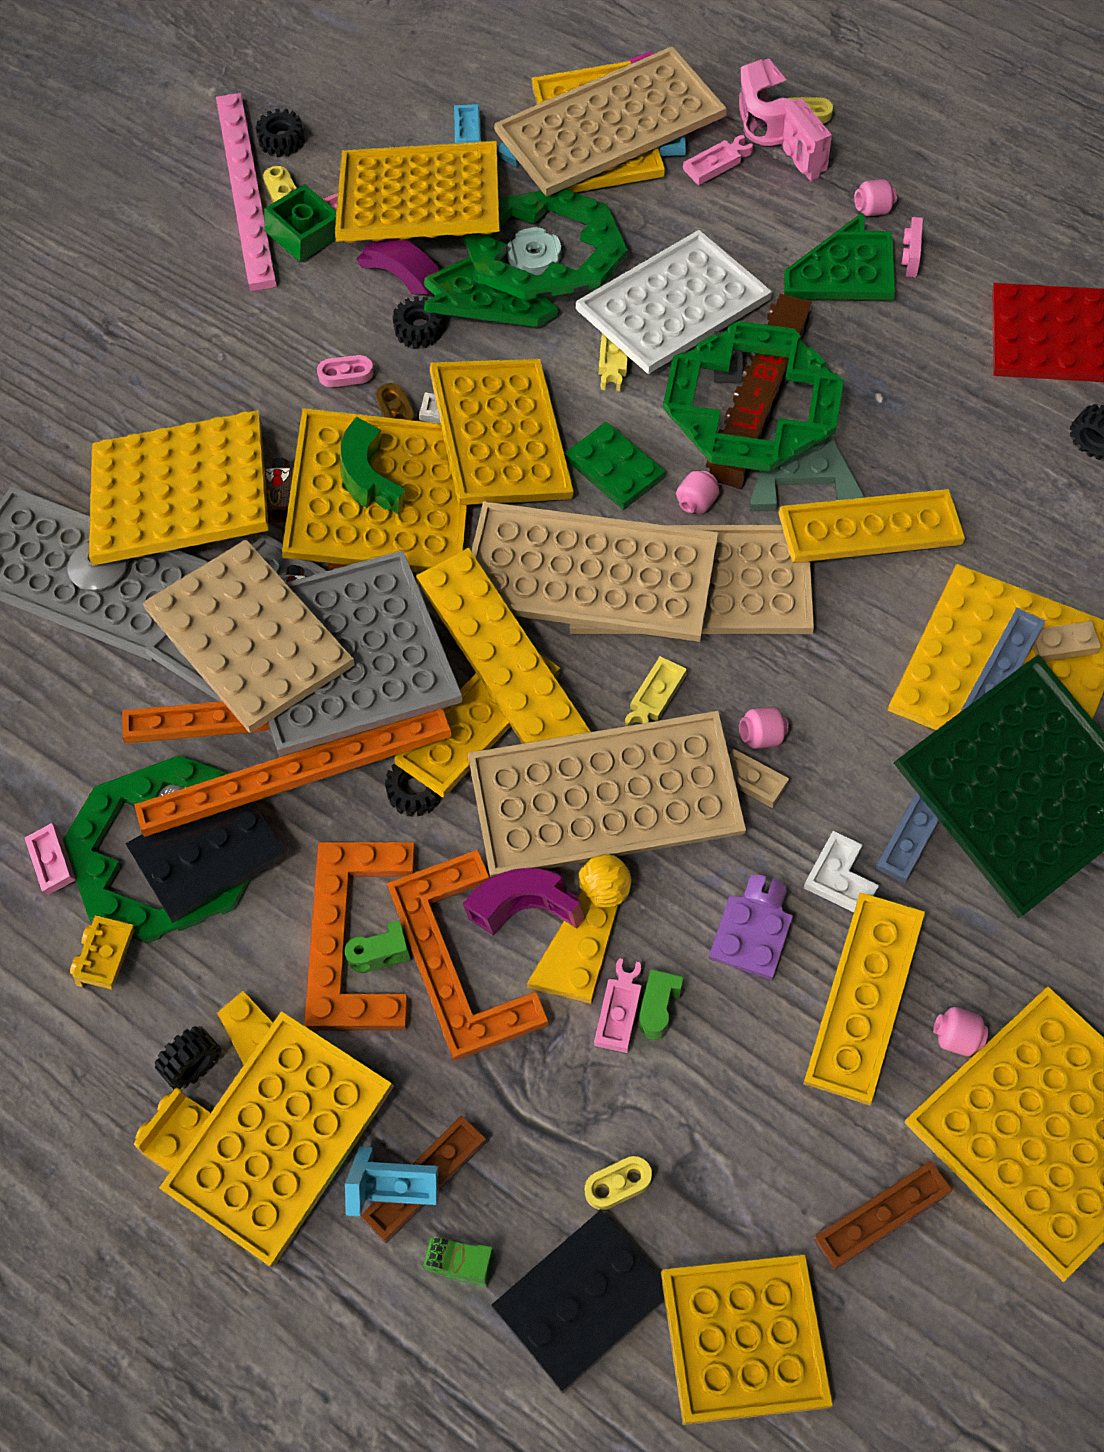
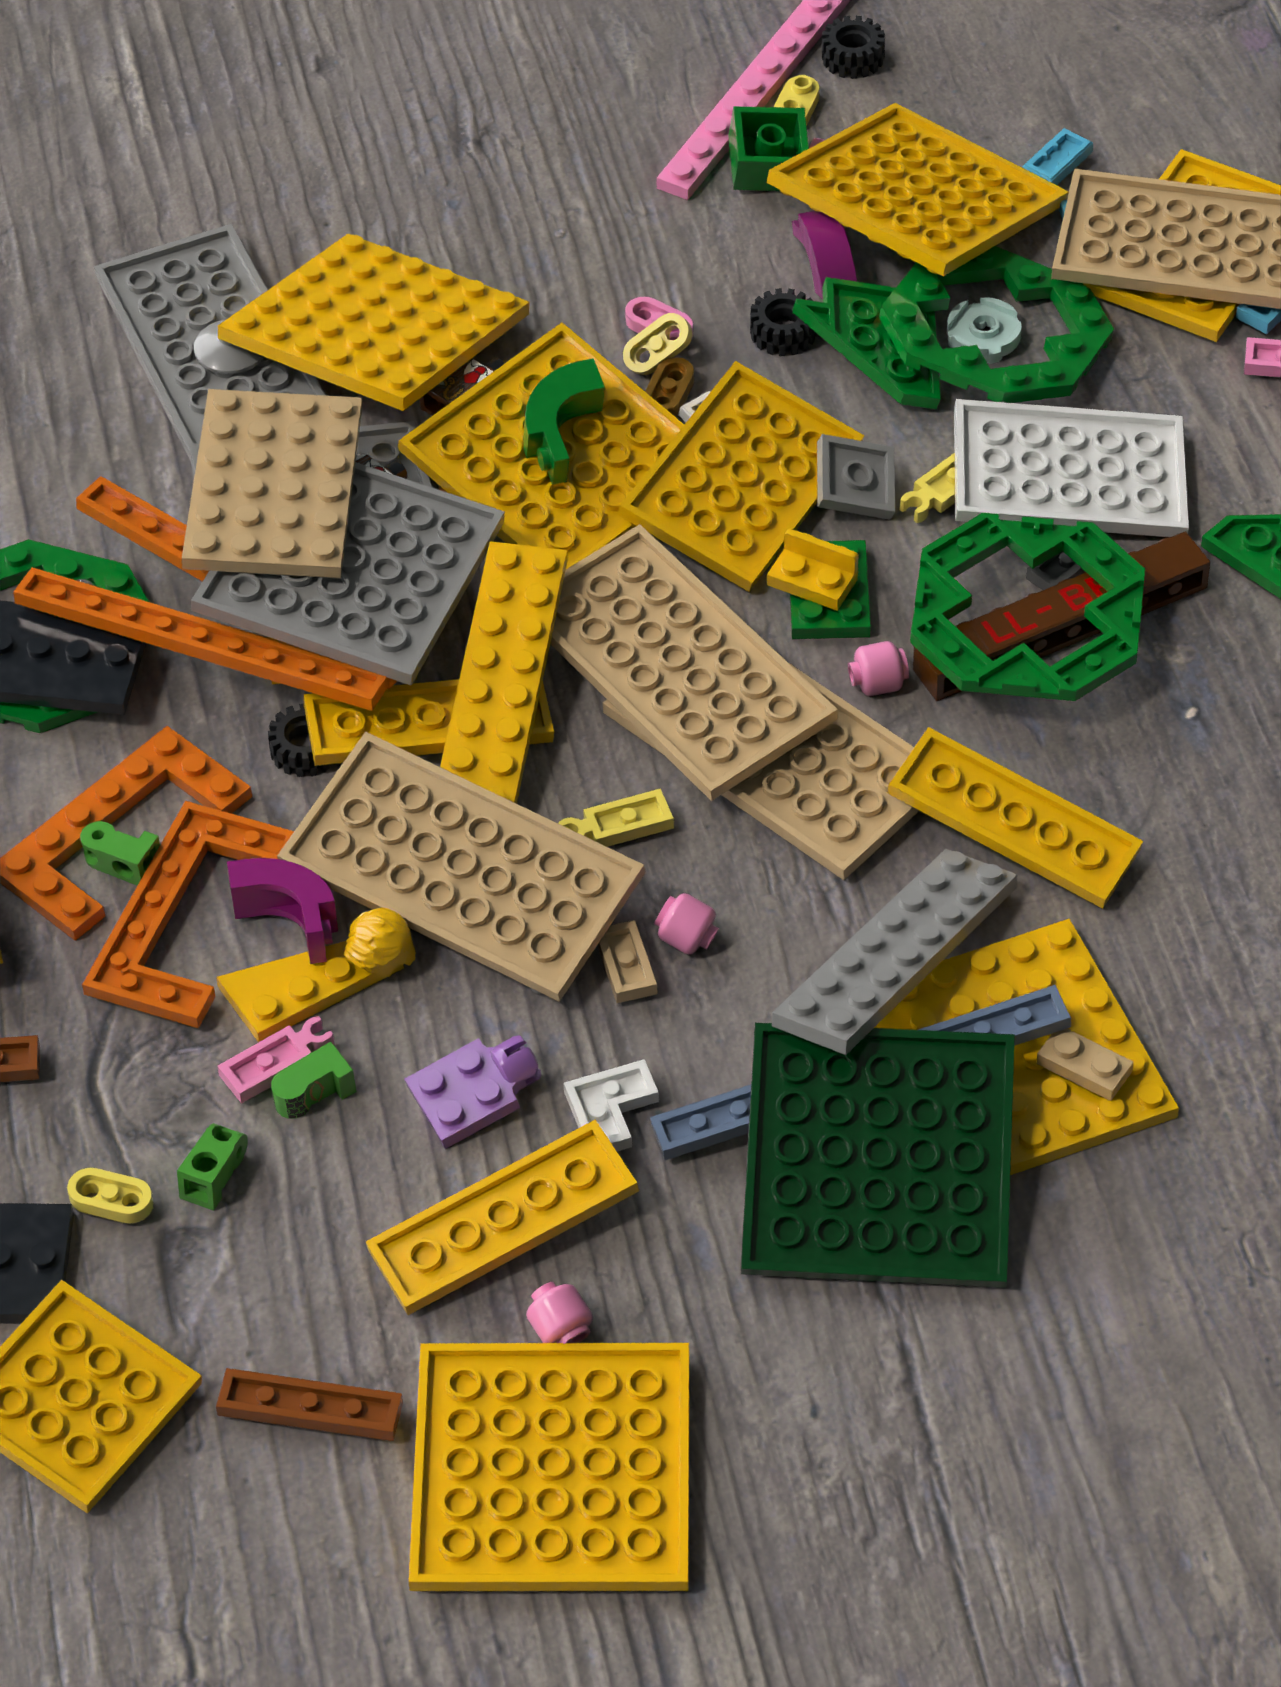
camera: 40 degrees right, 10 degrees down
(362, 384) = (657, 341): none -> light yellow plate
(565, 386) = (855, 476): none -> light grey plate
(606, 458) = (814, 569): none -> yellow bracket
(658, 1109) = (211, 1165): none -> bright green leg
(816, 465) = (1033, 724): sand green wing -> none
(910, 657) = (894, 951): none -> light grey plate

